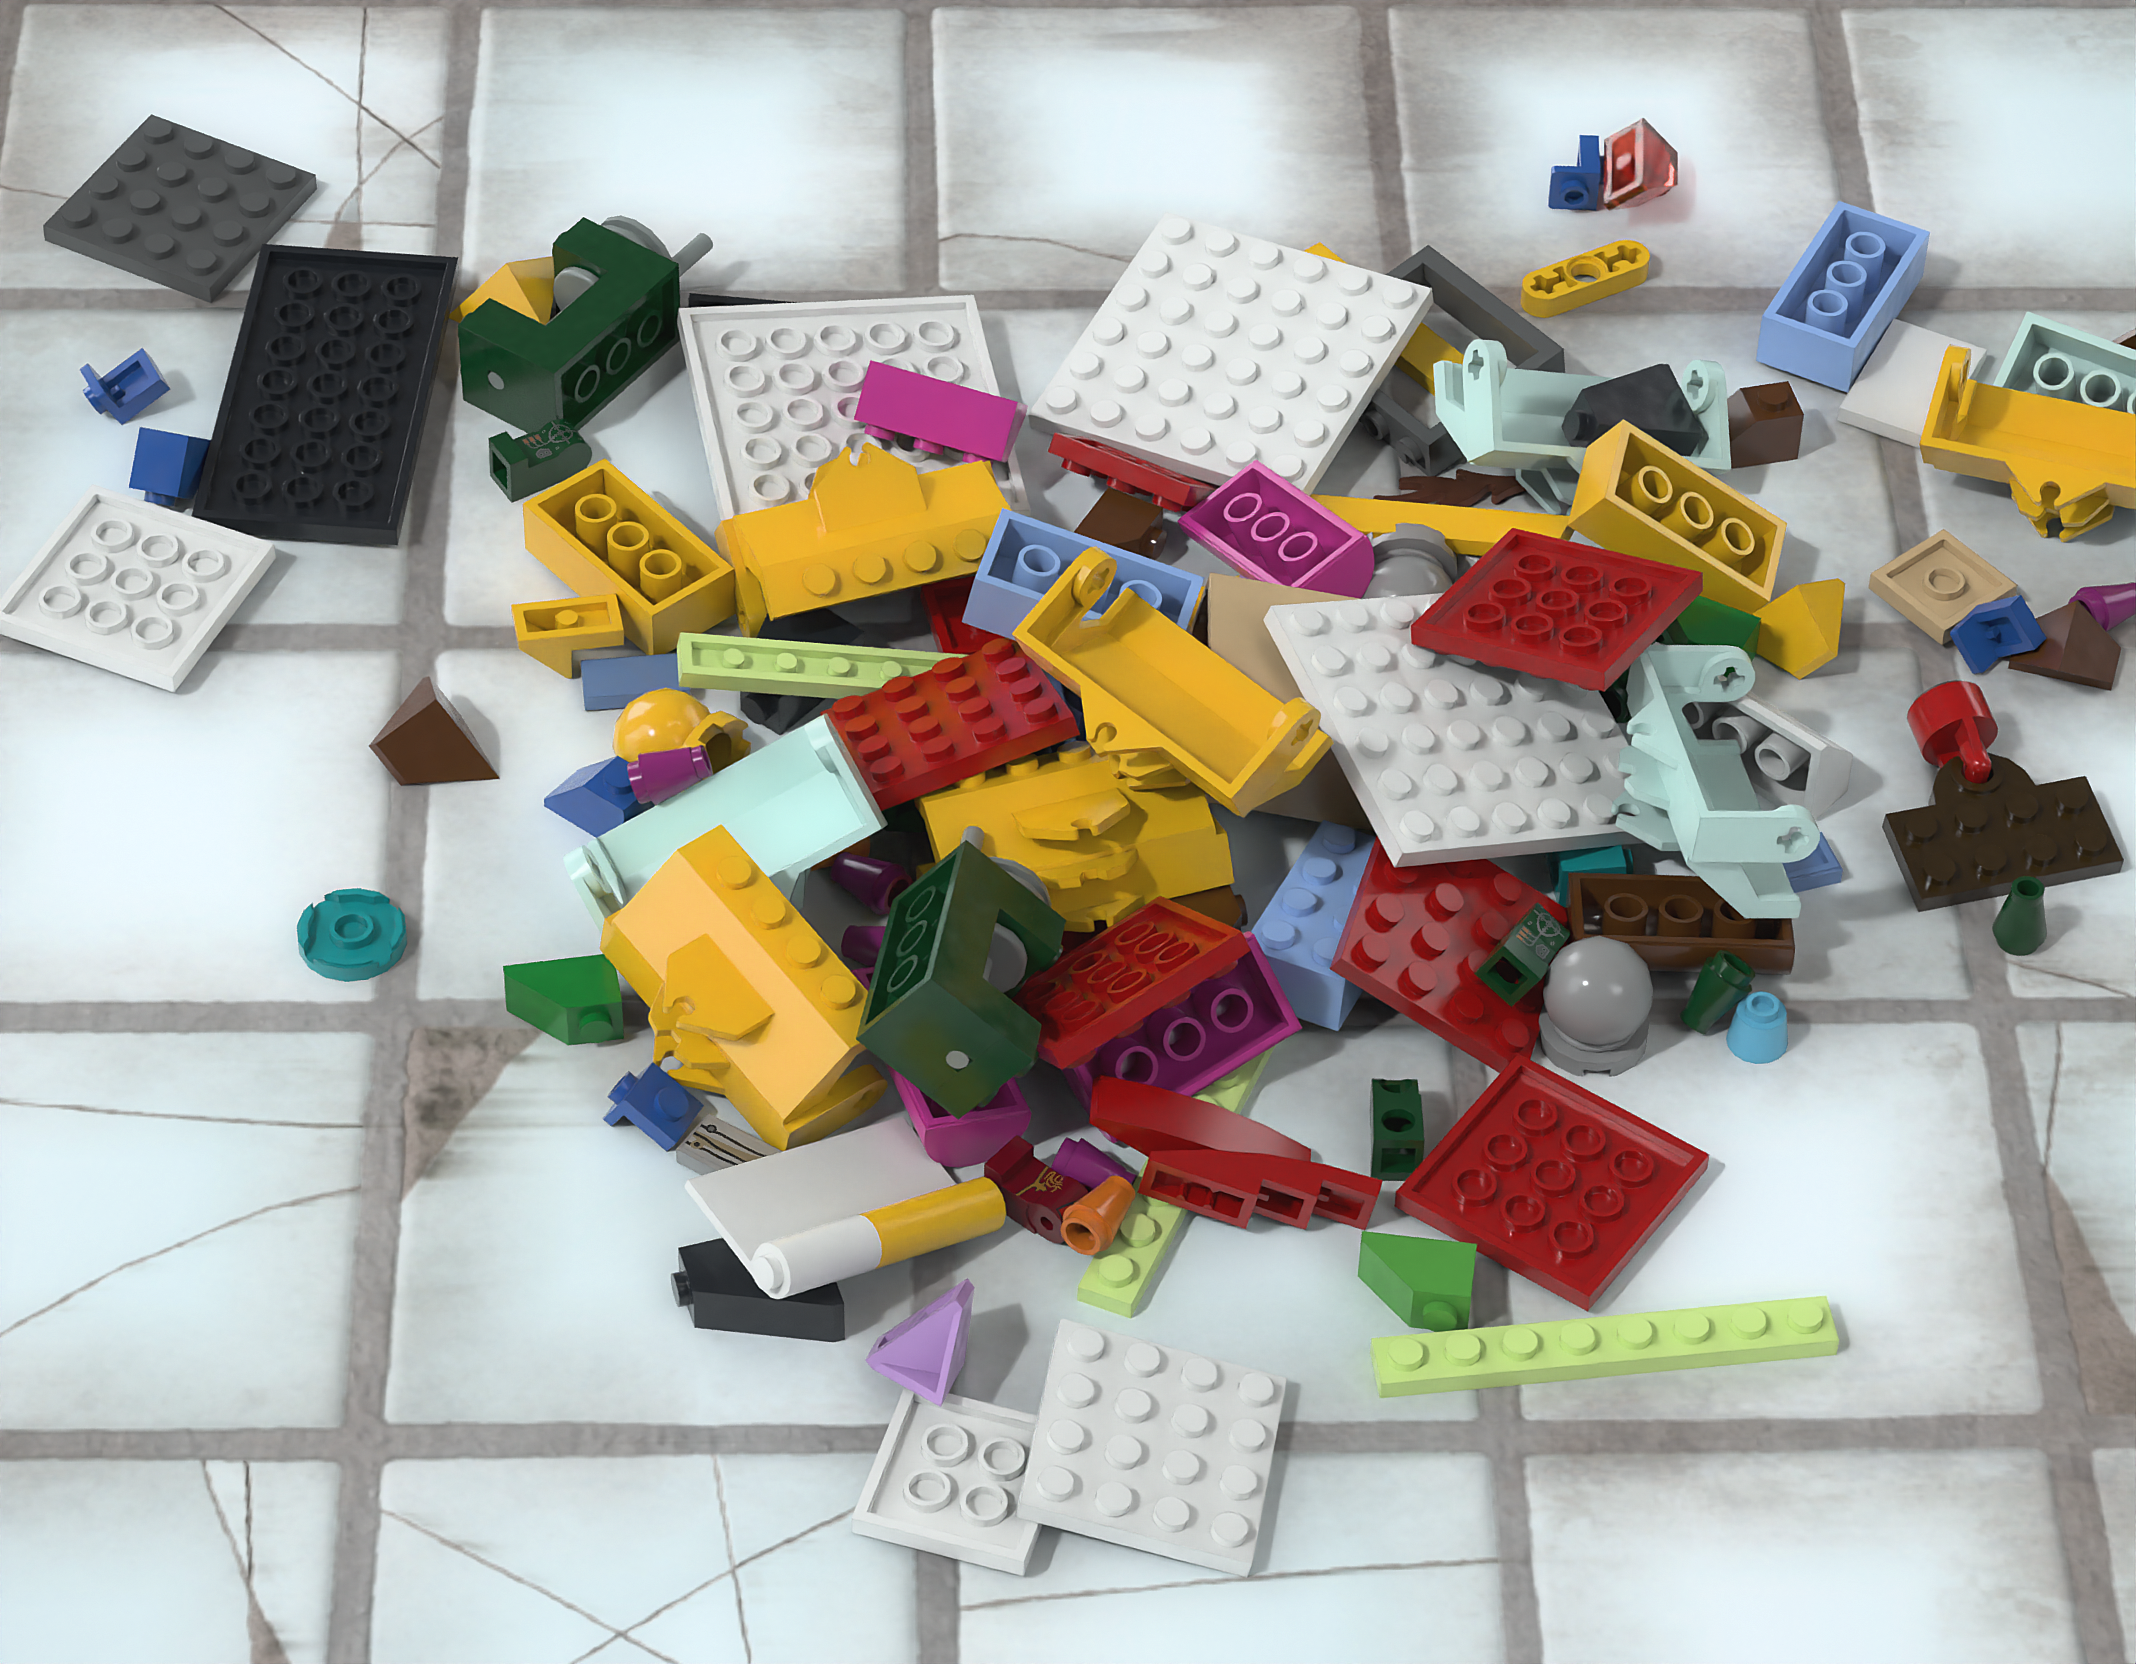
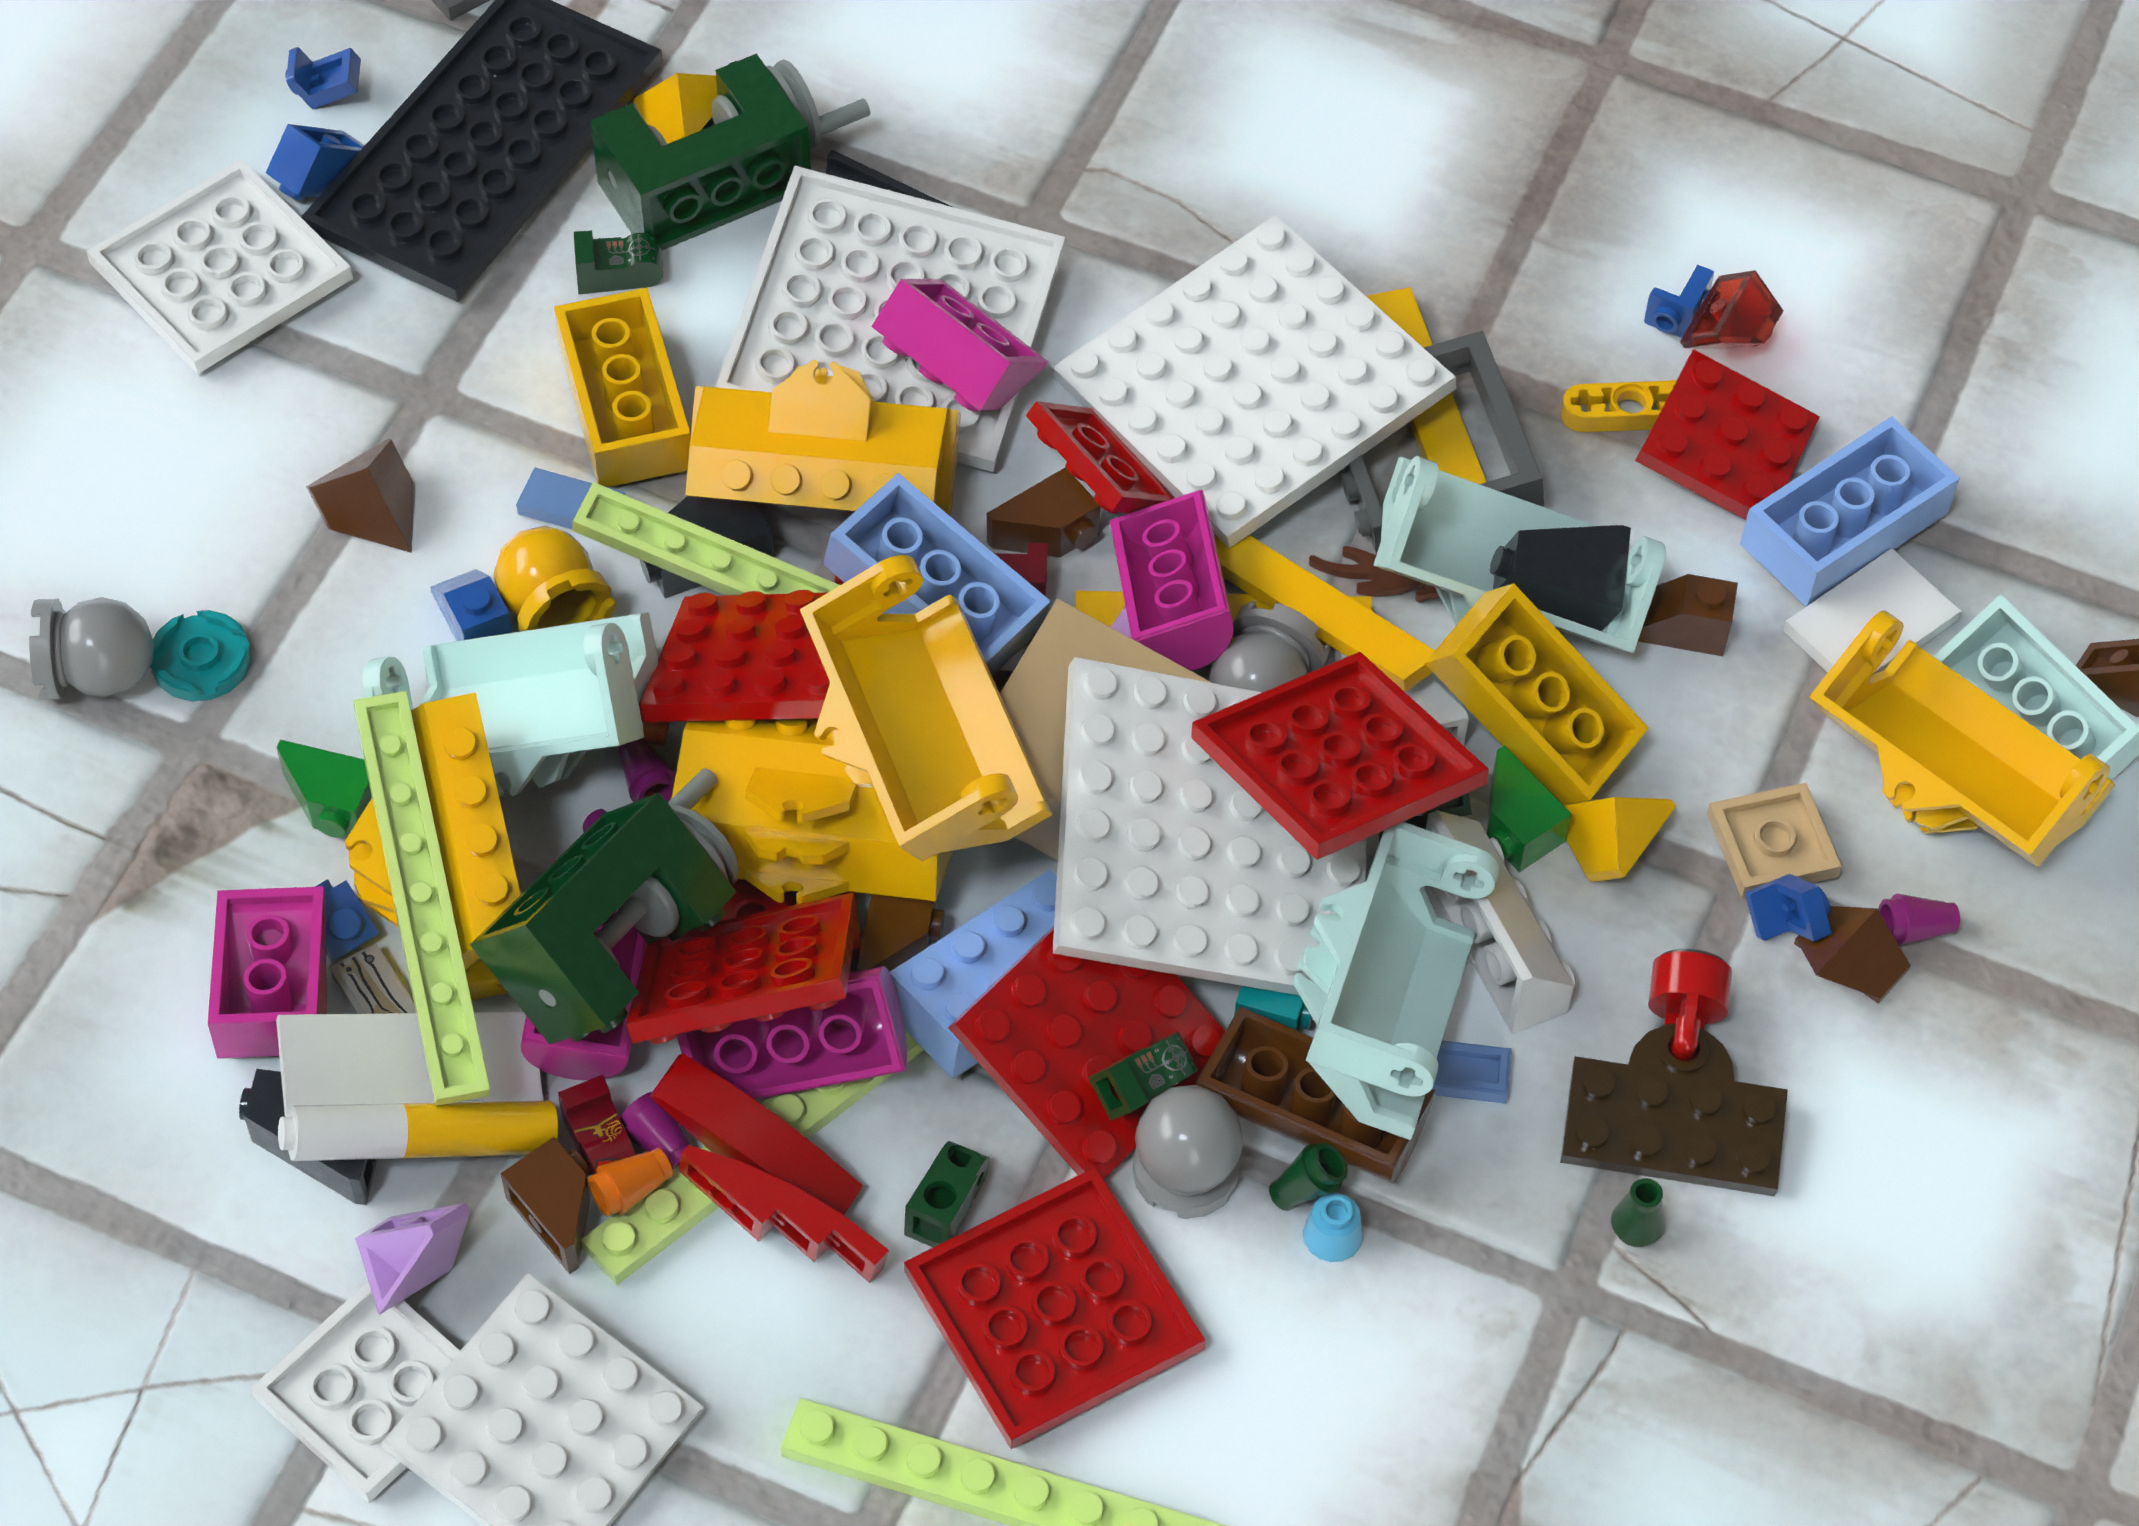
camera: 25 degrees right, 10 degrees up
(254, 952) = (94, 647): none -> light grey tile
(557, 627) = (527, 434): yellow slope -> none
(628, 1166) = (265, 966): none -> dark pink slope
(667, 772) = (502, 612): magenta cone -> none
(773, 1024) = (421, 899): none -> yellowish green plate
(1031, 1263) = (552, 1198): none -> reddish brown slope
(1420, 1278) = (880, 1361): bright green slope -> none
(1691, 273) = (1726, 436): none -> red plate

